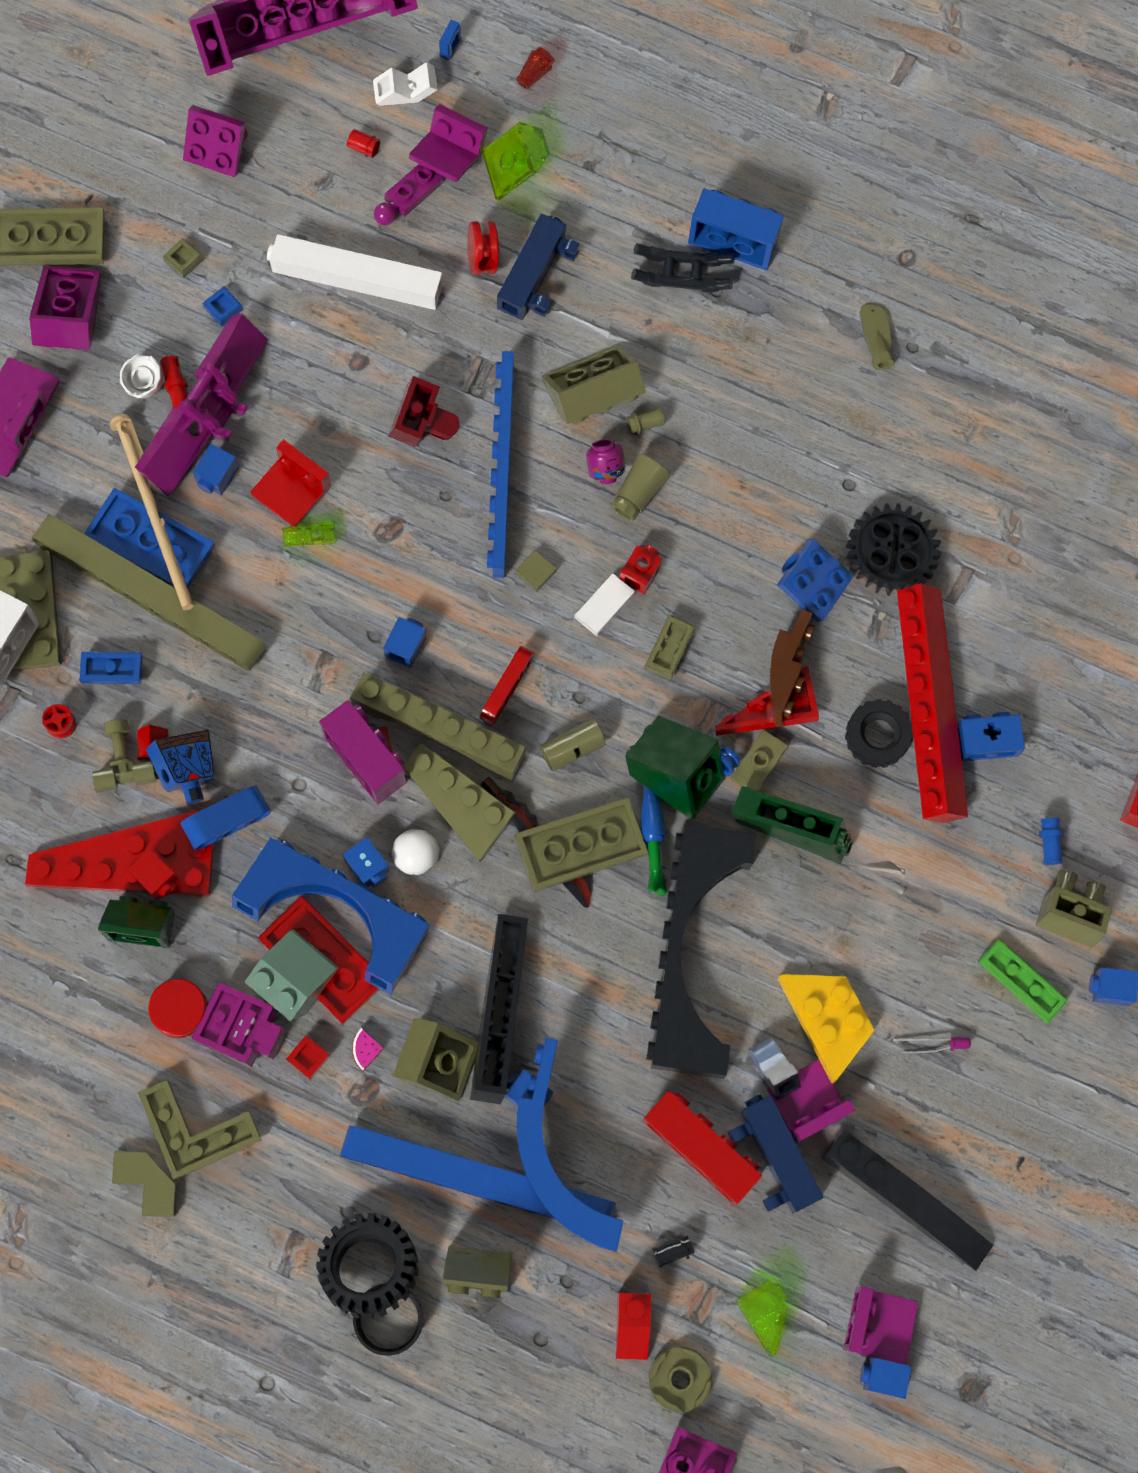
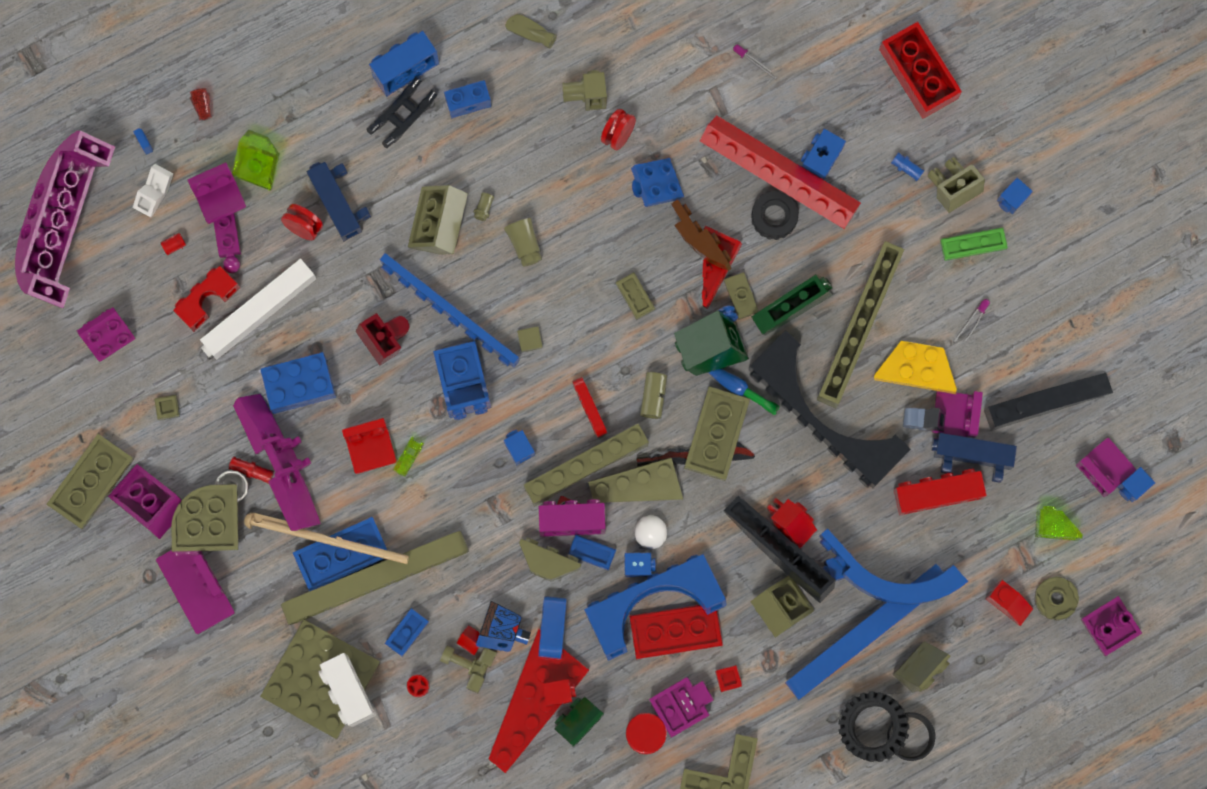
camera: 50 degrees left, 5 degrees up
(85, 375) = (207, 520): none -> olive plate
(215, 470) = (326, 484): blue brick -> none
(222, 306) = (218, 405): blue tile -> none
(291, 975) = (676, 653): sand green slope -> none
(297, 761) = (547, 562): none -> olive slope
(305, 365) = (298, 383): none -> blue brick
(307, 206) = (190, 308): none -> red arch
(345, 804) = (592, 552): none -> blue tile
(365, 1049) = (746, 643): dark pink tile -> none
(434, 531) = (462, 380): none -> blue bracket
(540, 1000) = (792, 521): none -> red brick
(604, 604) = (580, 314): white tile -> none
(605, 461) = (493, 249): magenta head -> none
(641, 577) = (576, 284): red brick -> none
(673, 1251) = (985, 550): black pin -> none
(749, 321) = (467, 99): none -> blue brick
(827, 915) = (860, 324): none -> olive brick
(840, 496) = (618, 129): none -> red head
(861, 434) = (589, 90): none -> olive brick
(866, 545) = (657, 135): black gear -> none
(1034, 571) = (742, 52): none -> piece

